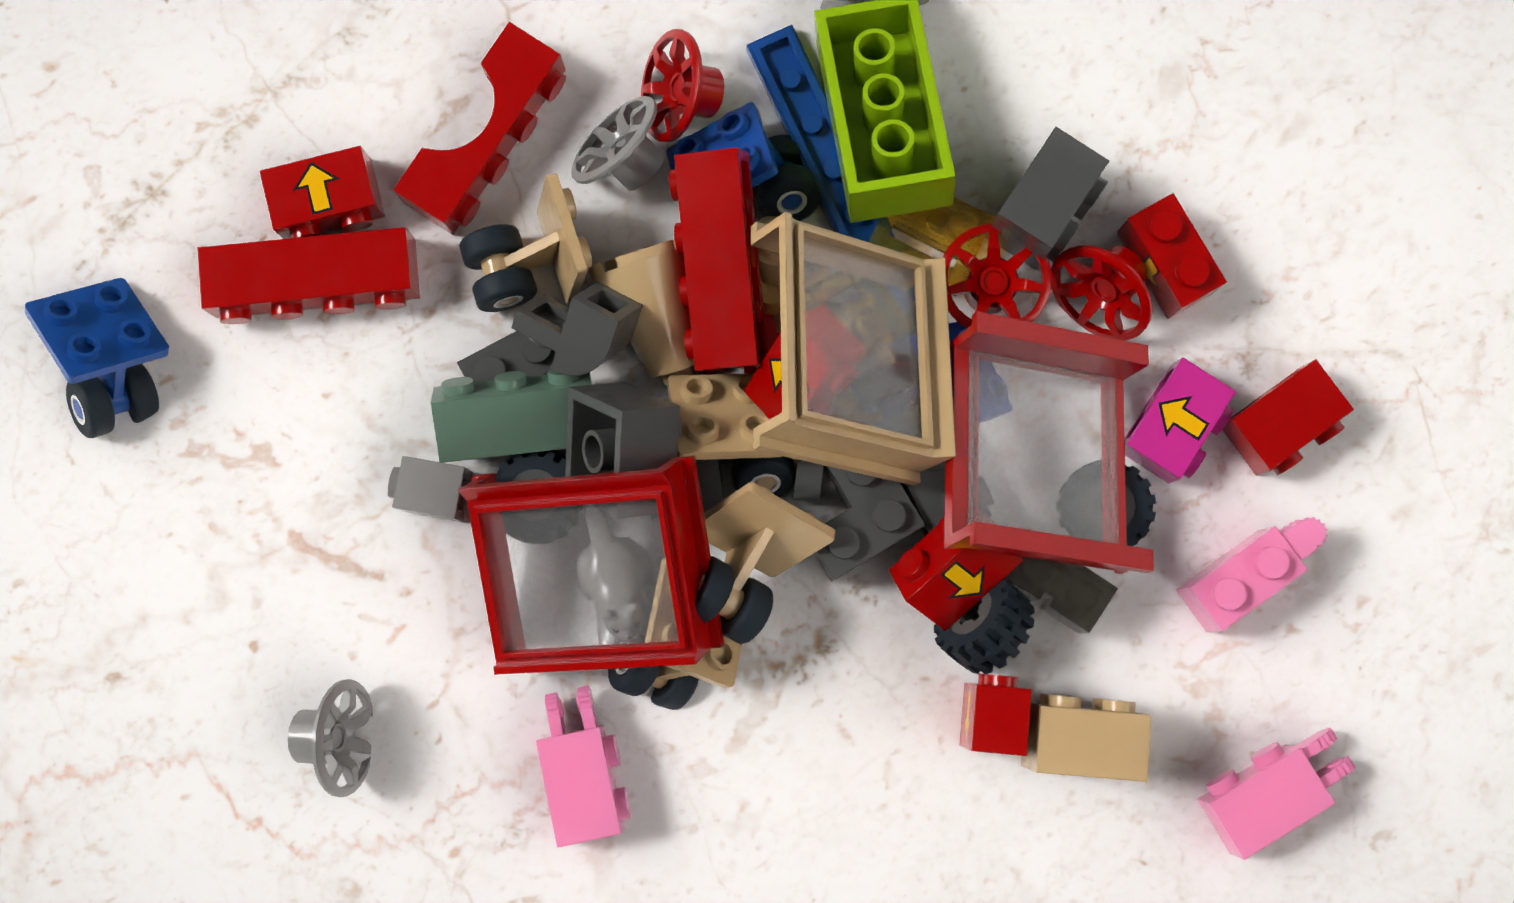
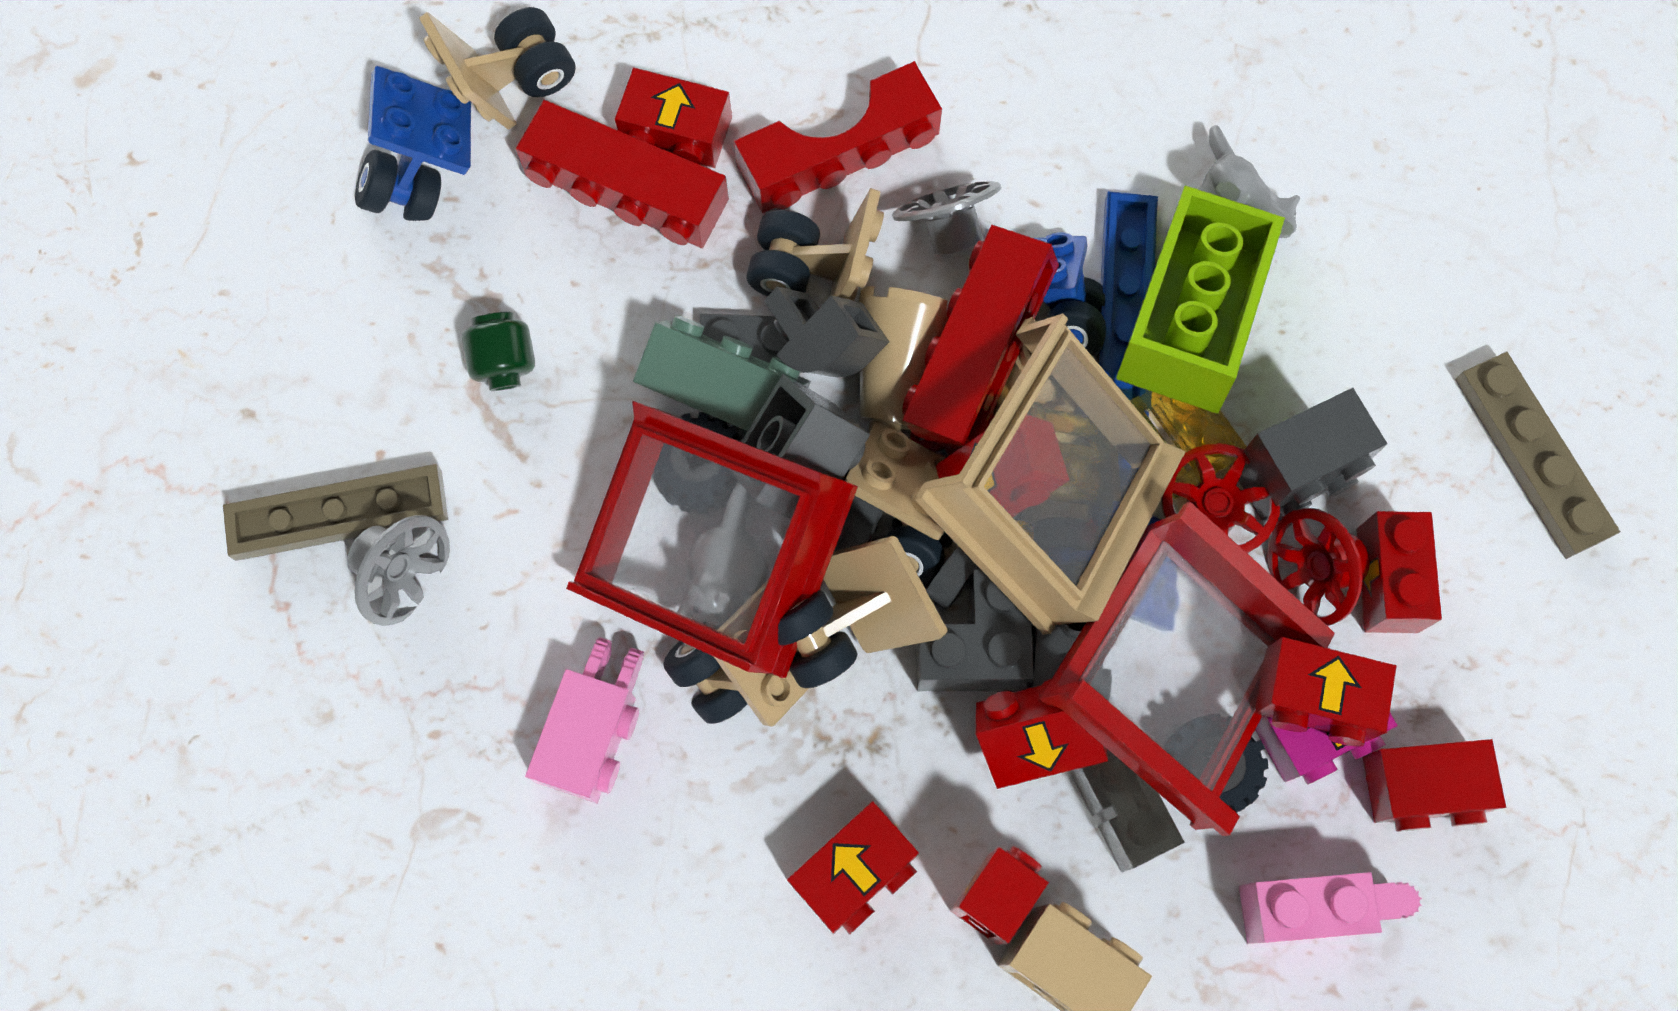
camera: 30 degrees right, 10 degrees down
(151, 211) = (524, 55): none -> plate
(250, 720) = (331, 511): none -> dark tan plate
(301, 498) = (498, 350): none -> dark green head
(429, 488) = (605, 401): light grey brick -> none
(686, 87) = (1036, 194): red wheel -> none
(867, 762) = (854, 869): none -> red brick
(989, 630) = (1039, 810): black wheel -> none
(1166, 400) = (1325, 691): none -> red brick
(1231, 81) = (1537, 455): none -> dark tan plate

